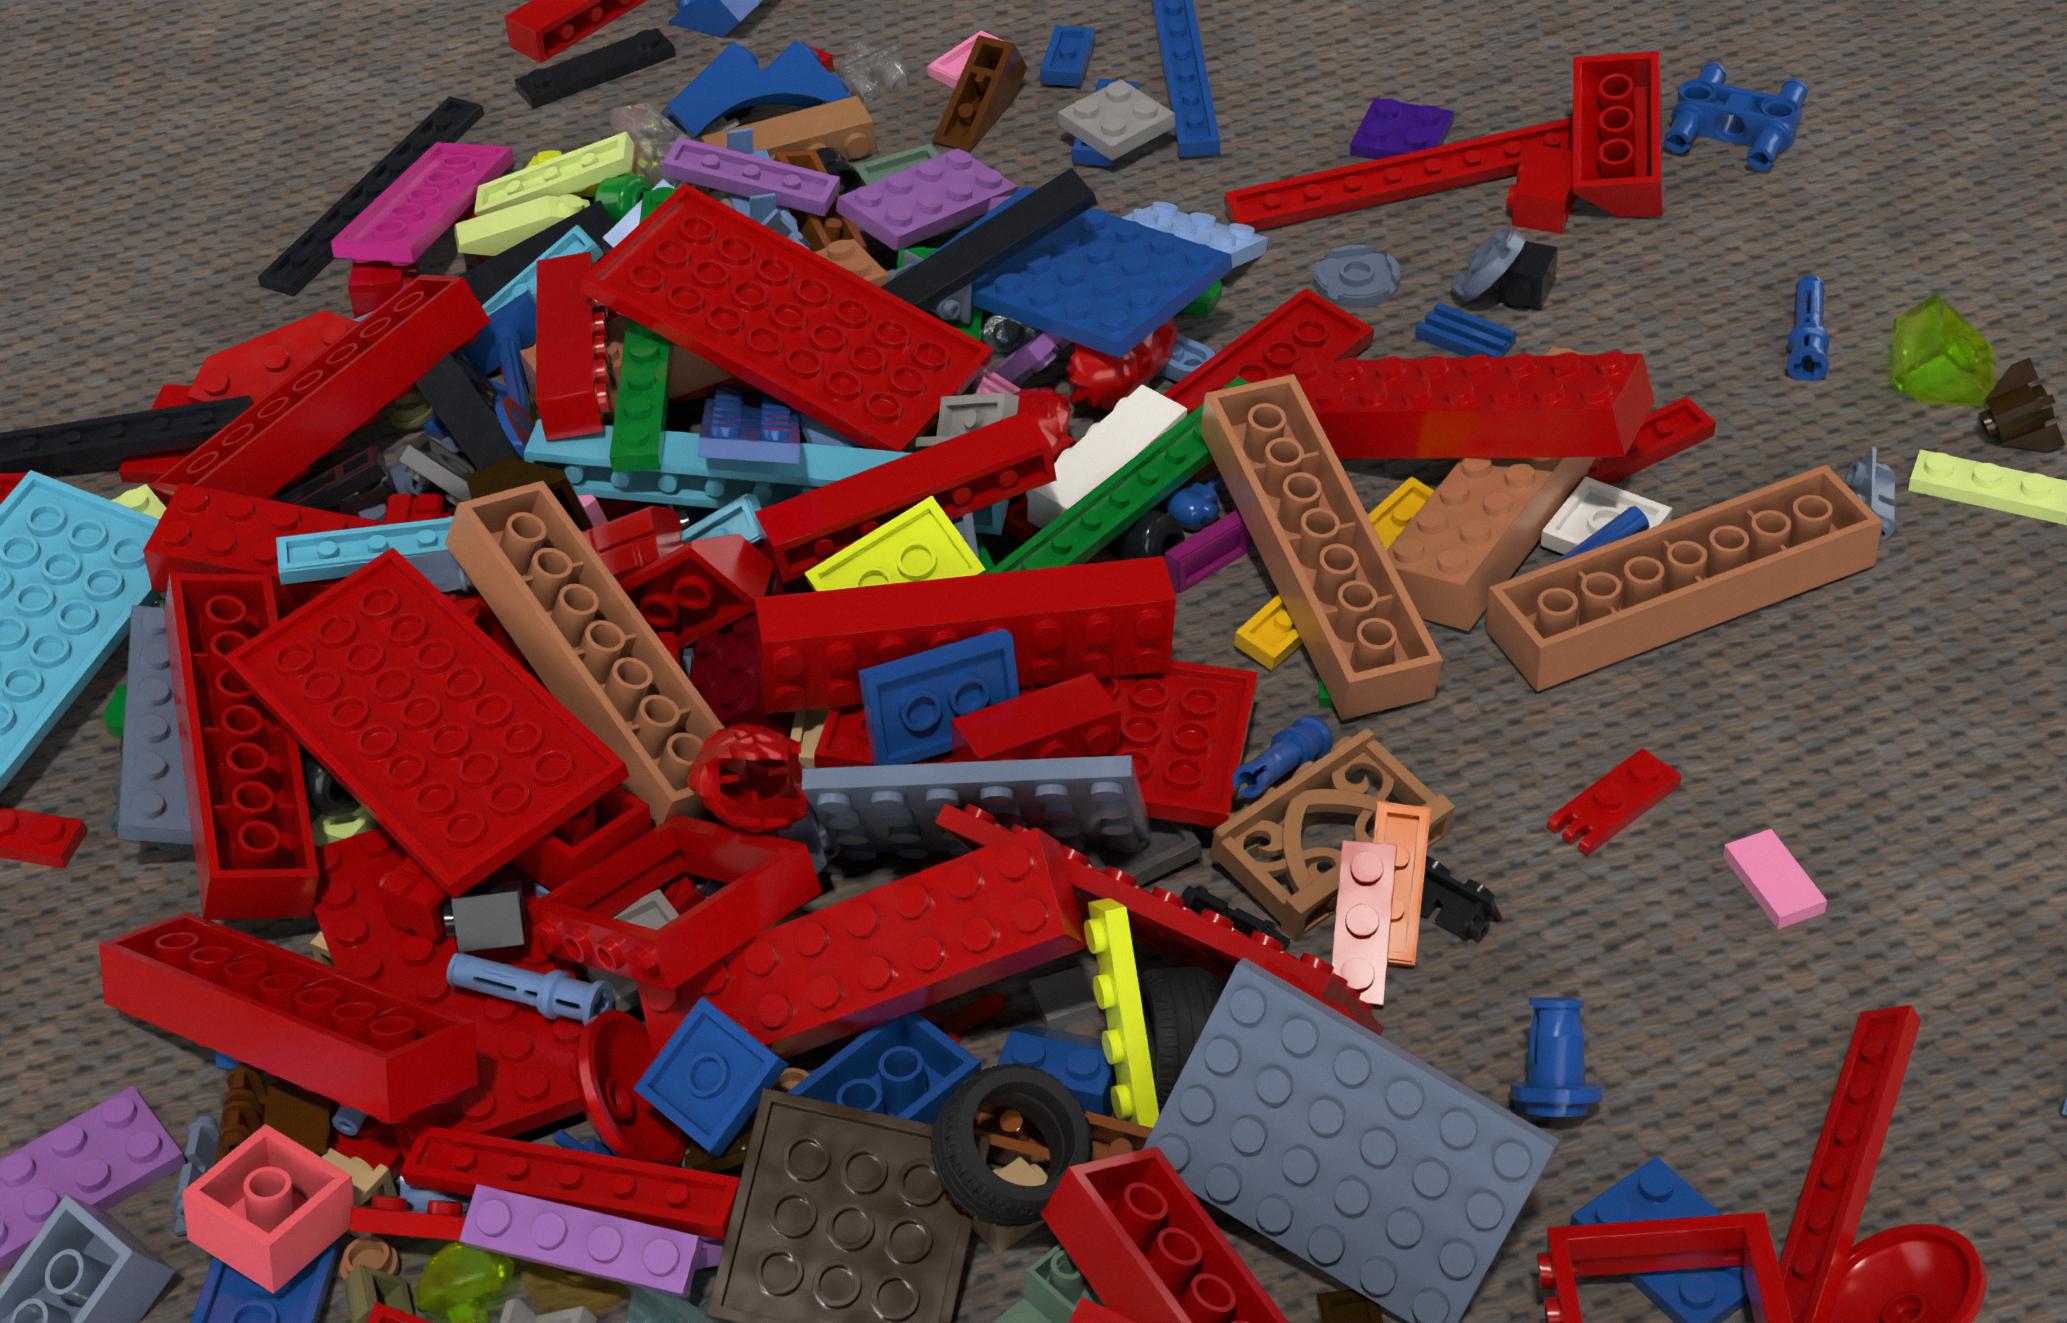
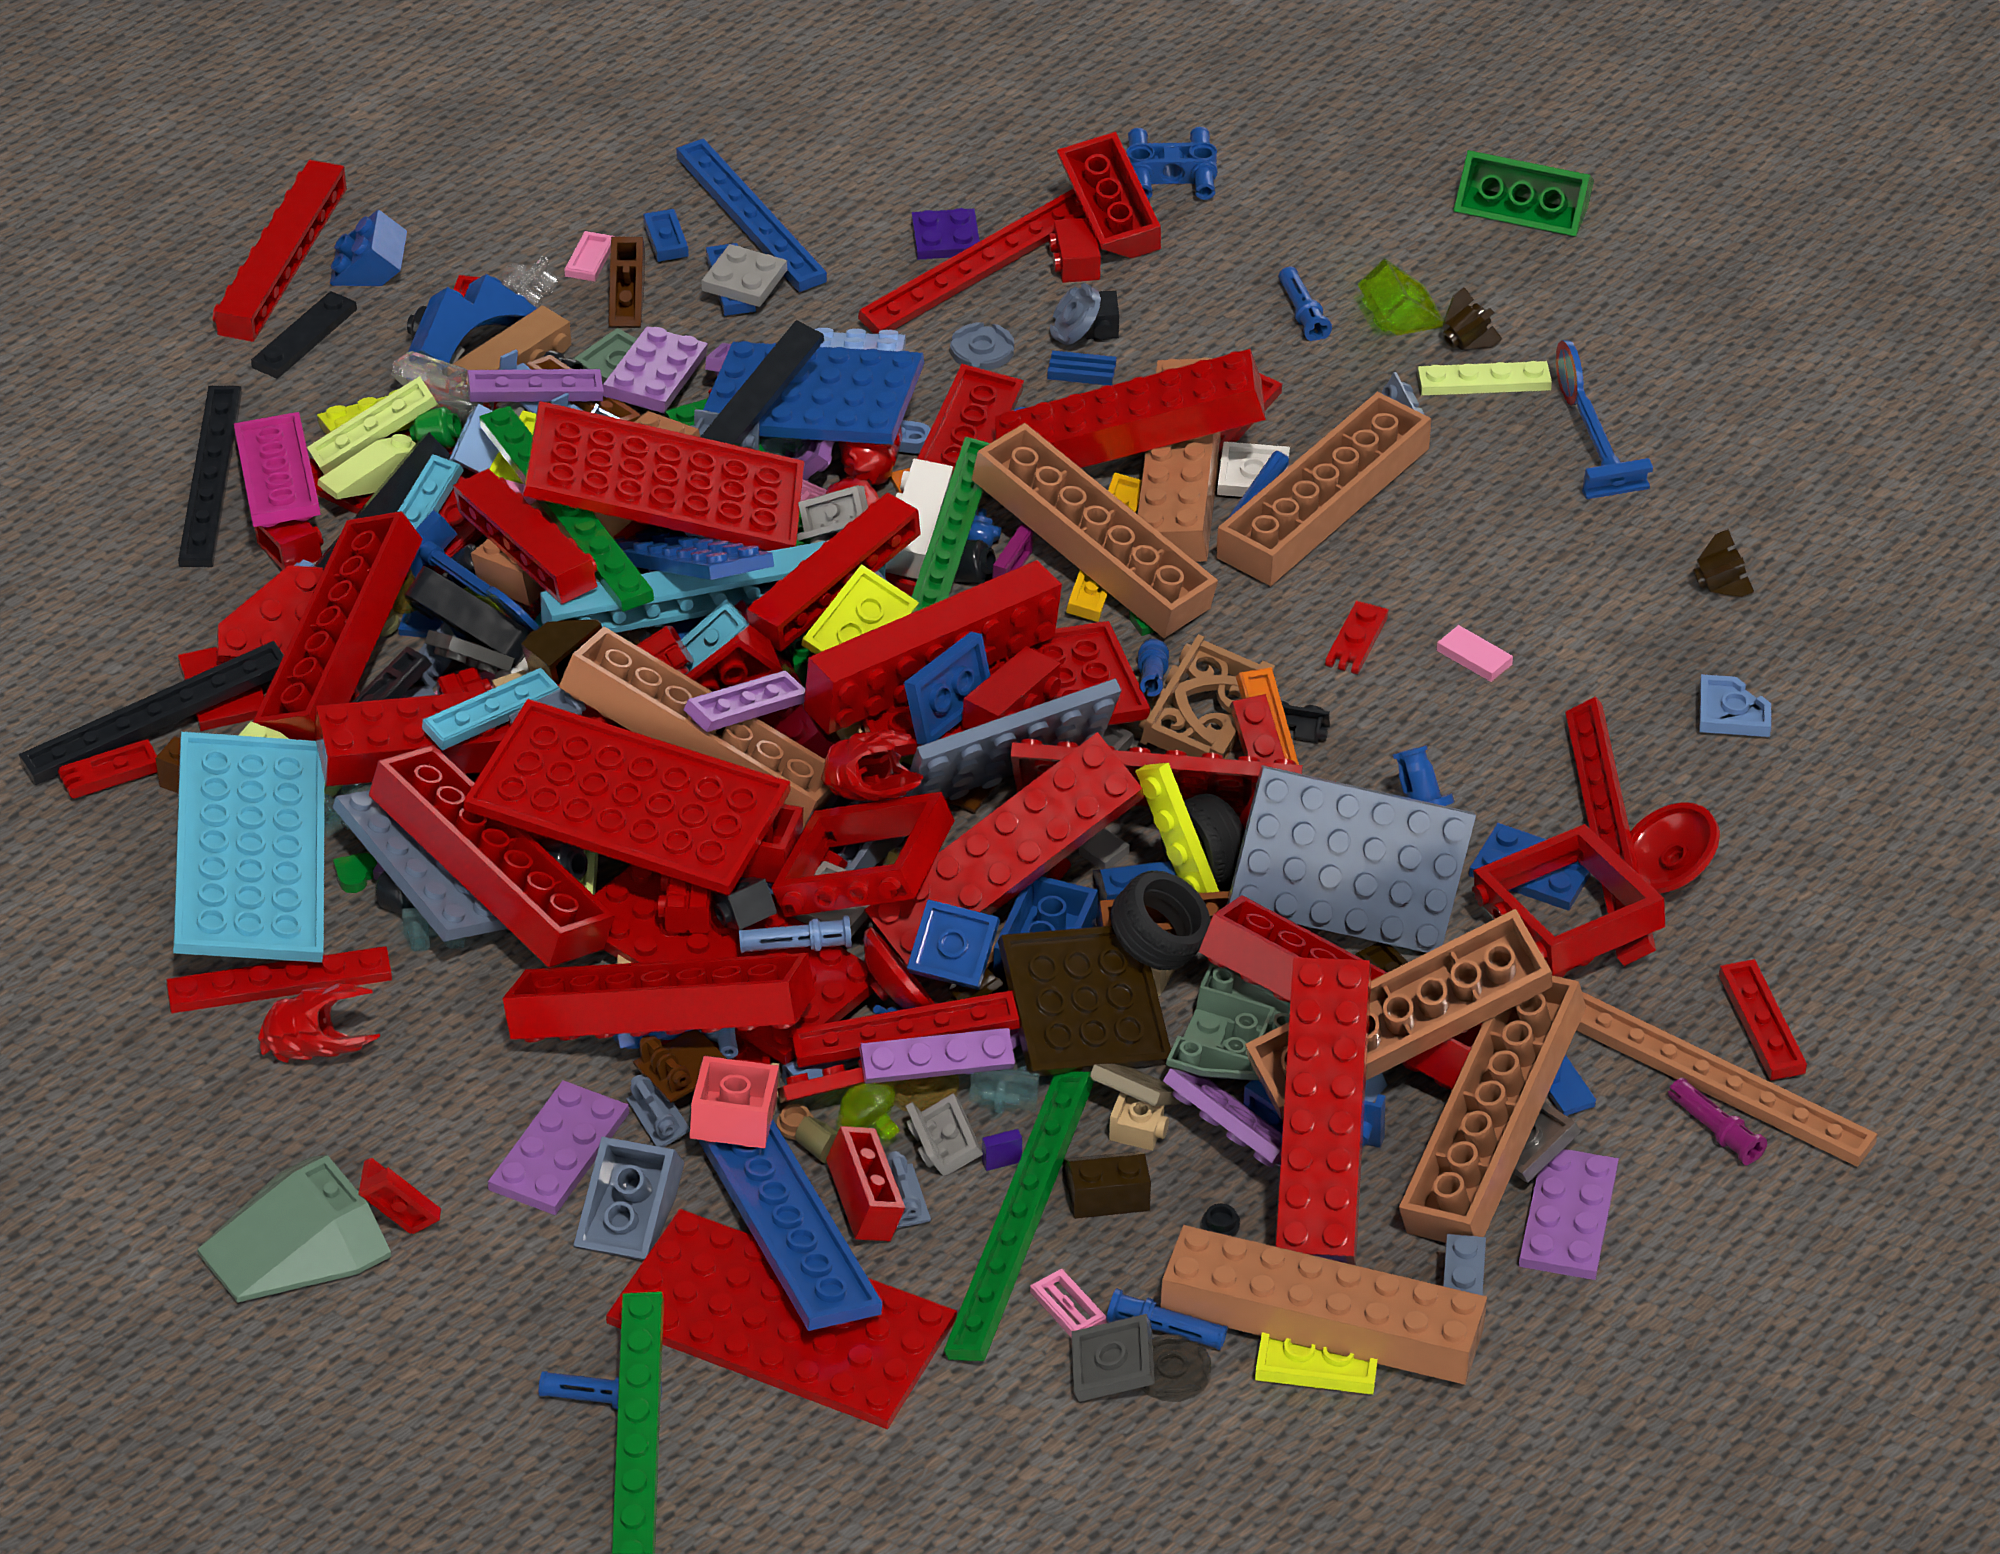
camera: 30 degrees left, 0 degrees up
(658, 634) = (745, 701): none -> medium lavender plate

